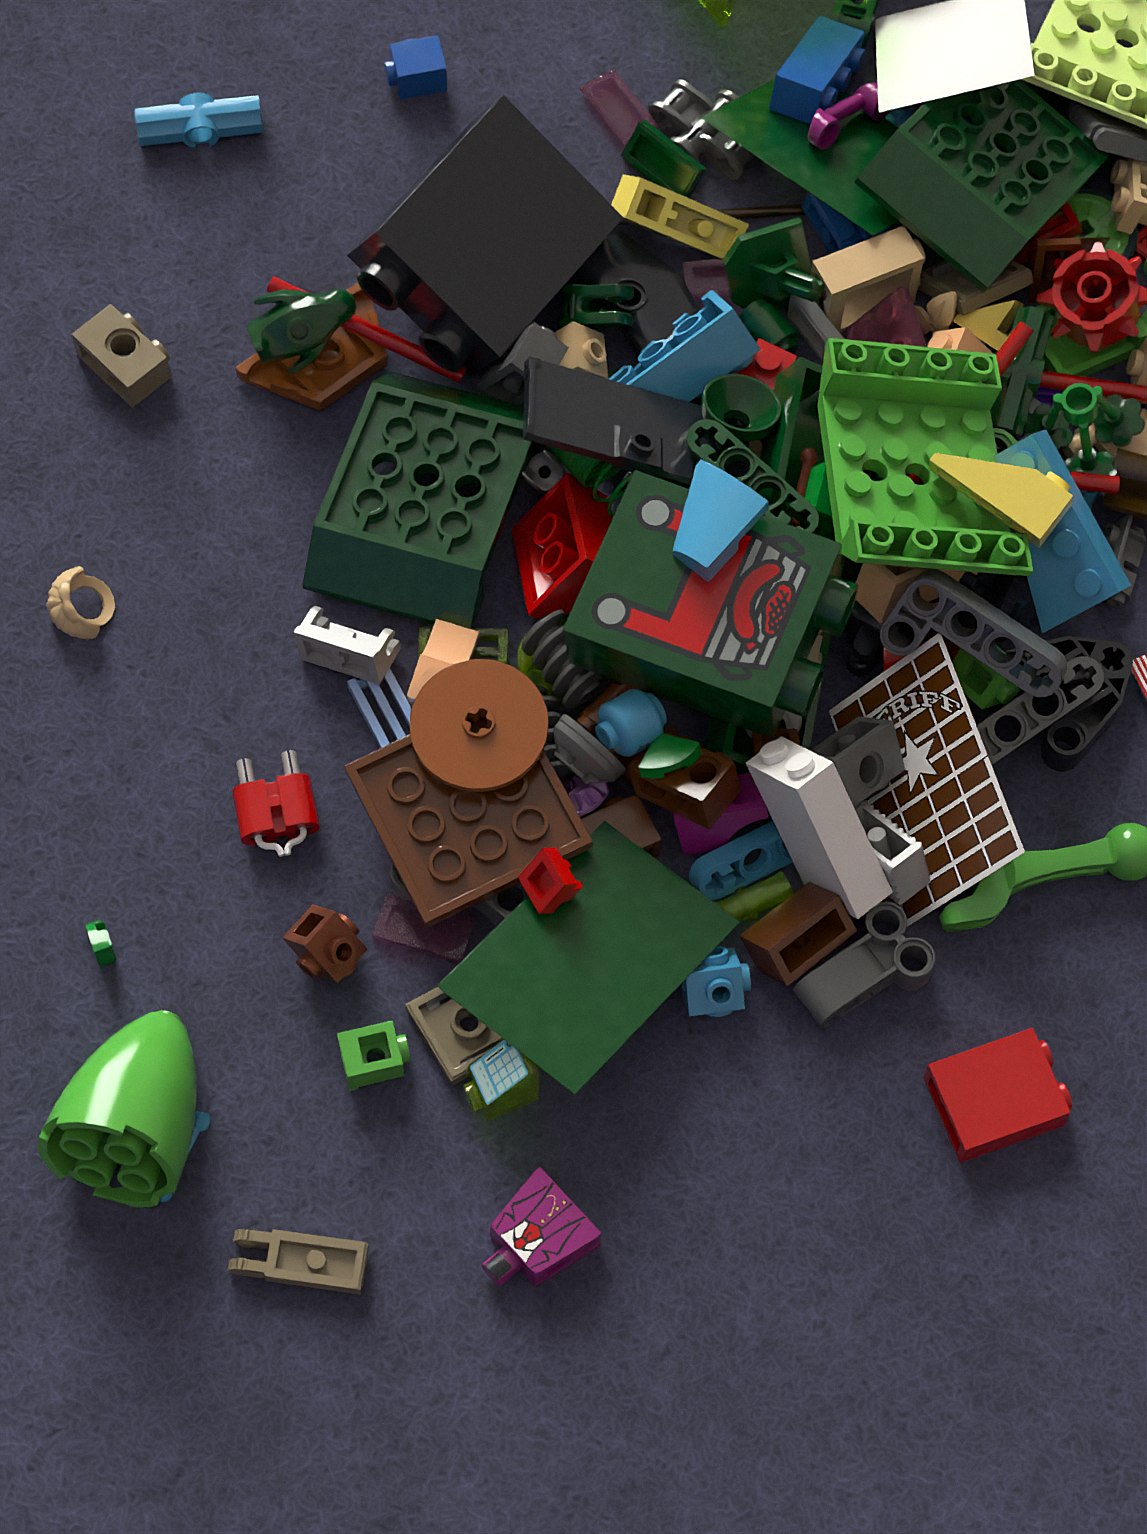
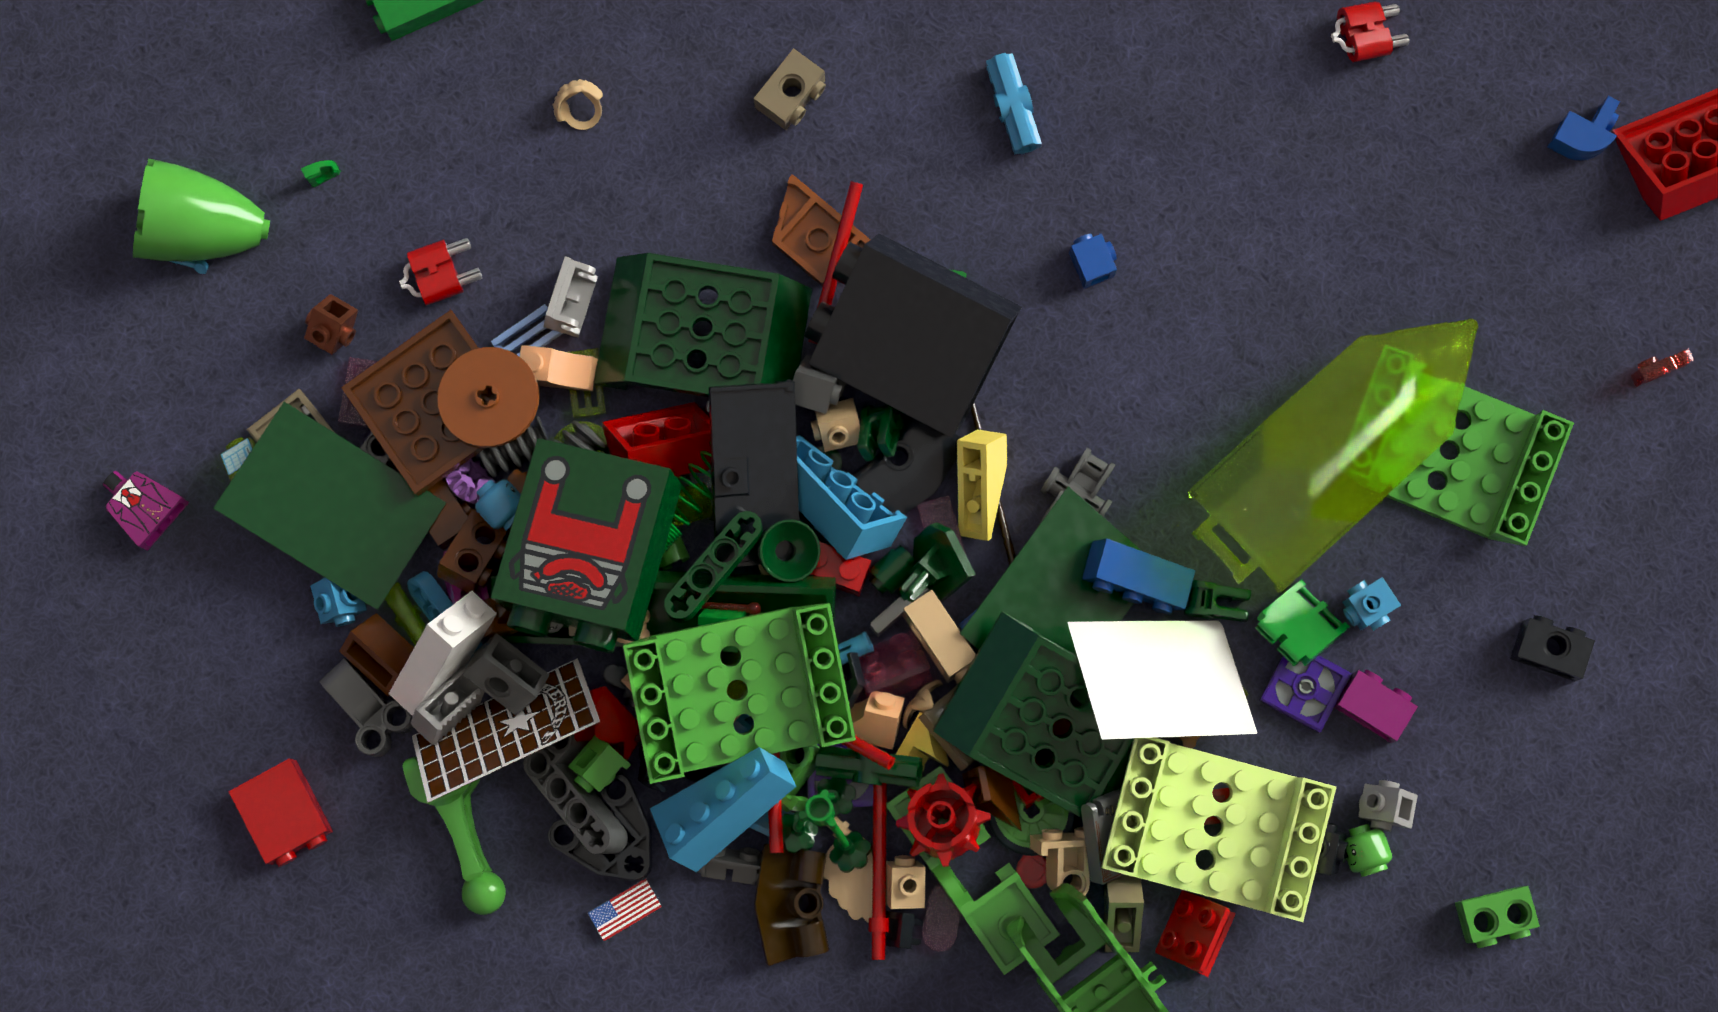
camera: 85 degrees right, 15 degrees up
(298, 324) = (819, 208): dark green animal -> none
(303, 1260) = (108, 353): dark tan hinge -> none
(360, 1043) = (248, 364): bright green brick -> none
(549, 880) = (375, 466): red tile -> none
(584, 753) = (484, 468): dark grey piece -> none
(616, 104) = (1087, 425): clear pink tile -> none
(662, 160) = (1037, 466): dark green tile -> none
(667, 755) = (475, 535): green tile -> none
(715, 519) = (628, 531): dark azure slope -> none
(826, 123) = (1069, 584): magenta bar -> none
(976, 641) = (604, 754): dark grey beam -> none
(1011, 493) = (716, 759): light yellow slope -> none

